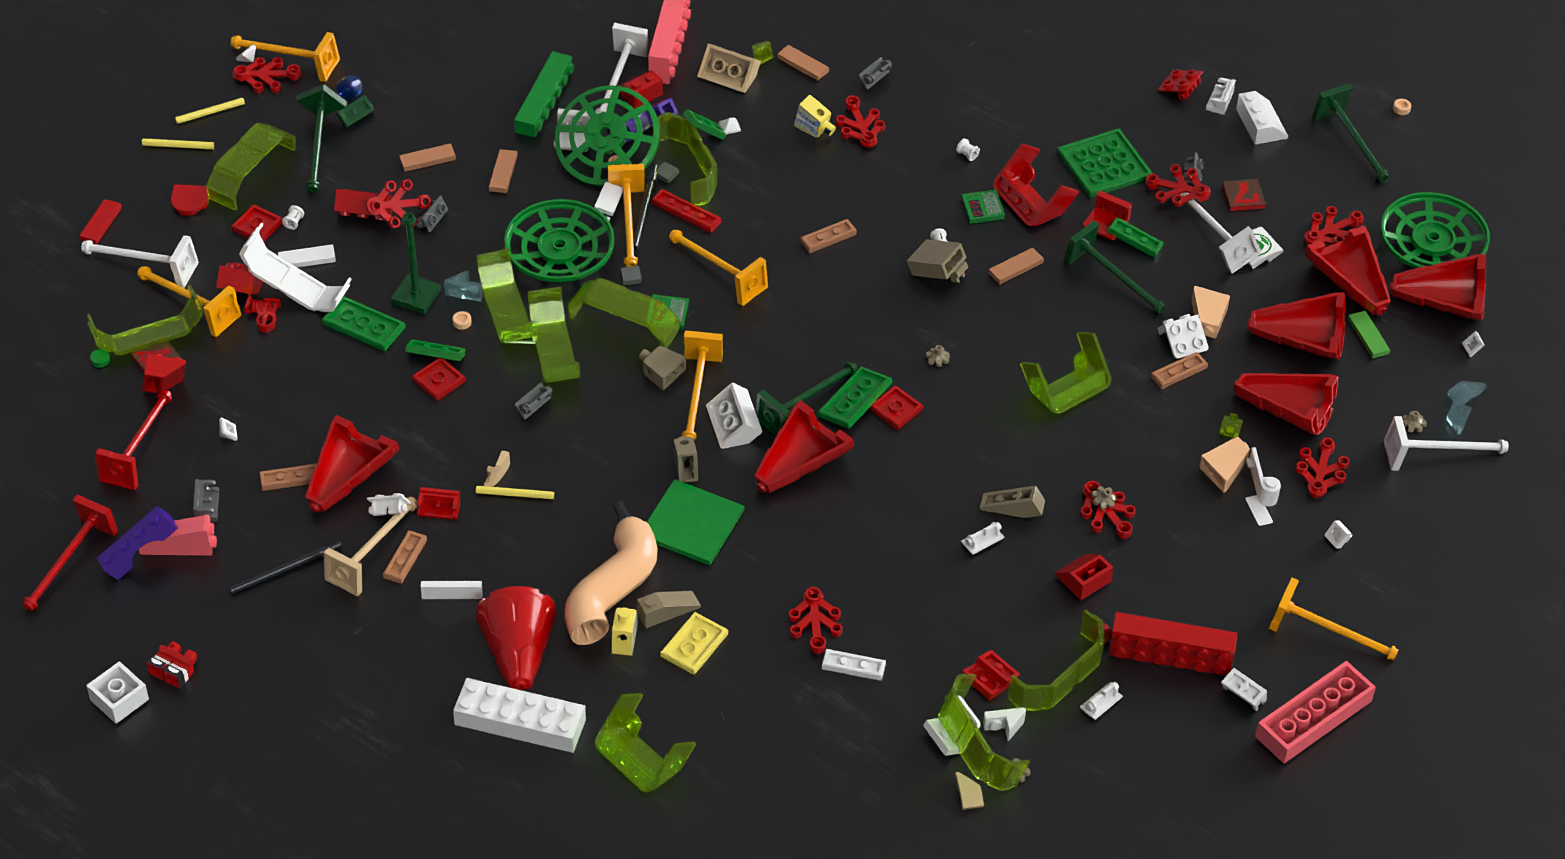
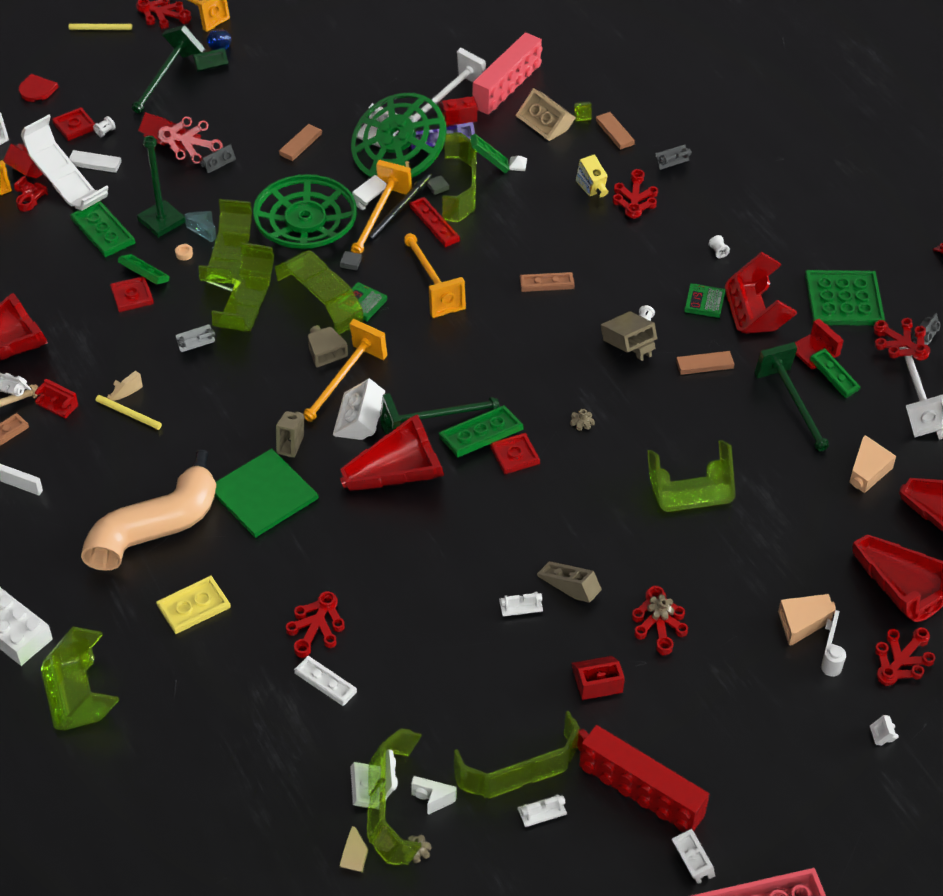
camera: 25 degrees right, 0 degrees up
(178, 144) = (71, 49): light yellow bar -> none
(242, 158) = (91, 64): clear neon green windscreen -> none
(427, 157) = (245, 113): nougat tile -> none
(516, 631) = (44, 535): red cone -> none
(543, 94) = (373, 90): green brick -> none
(624, 623) = (133, 569): light yellow torso -> none
(665, 606) = (184, 559): dark tan slope -> none
(991, 674) = (445, 738): red slope -> none
(1179, 370) = (809, 511): nougat tile -> none
(1184, 335) = (831, 480): white bracket -> none
(1231, 426) = (832, 582): clear neon green tile -> none
(1259, 511) = (816, 676): white sticker -> none
(1287, 606) = (784, 784): light orange tile -> none

